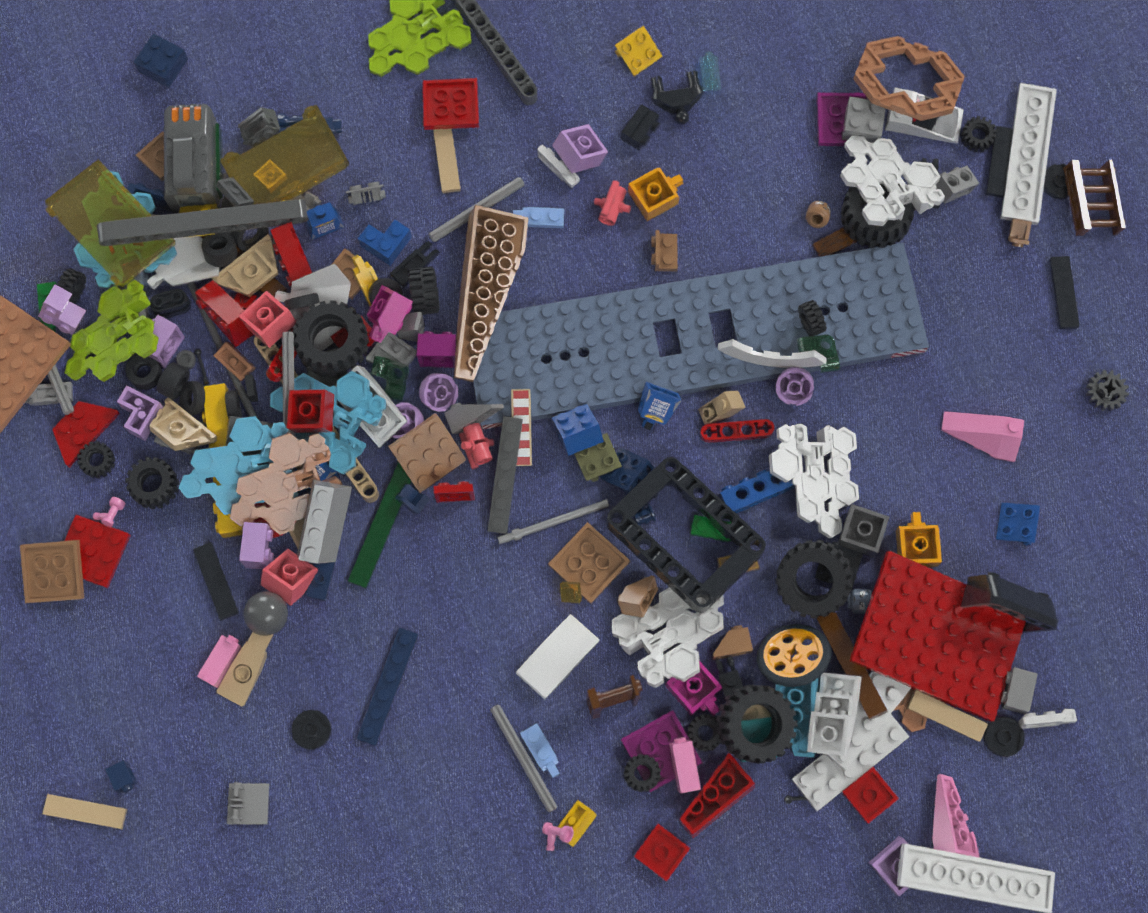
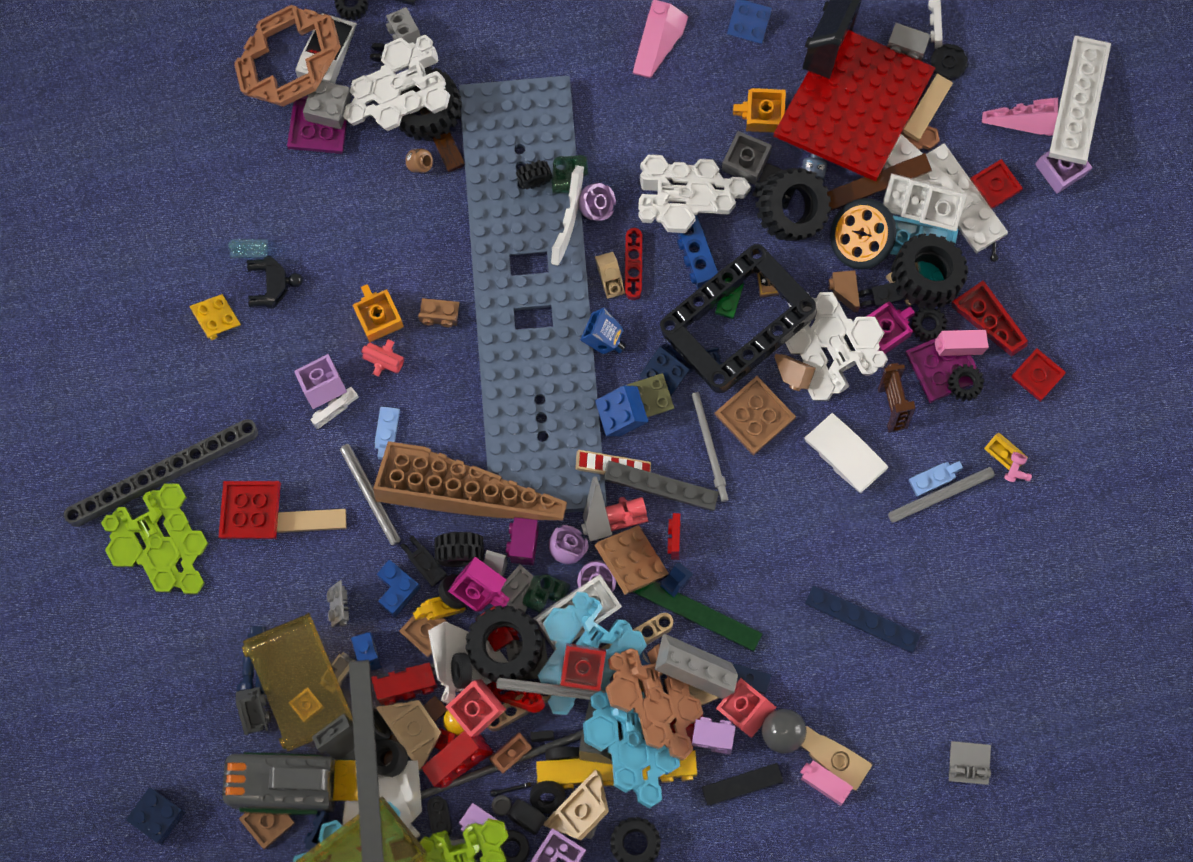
camera: 80 degrees left, 0 degrees up
(311, 729) = (900, 697): black tile -> none
(570, 592) = (783, 434): clear yellow tile -> none
(640, 127) = (301, 322): black brick -> none

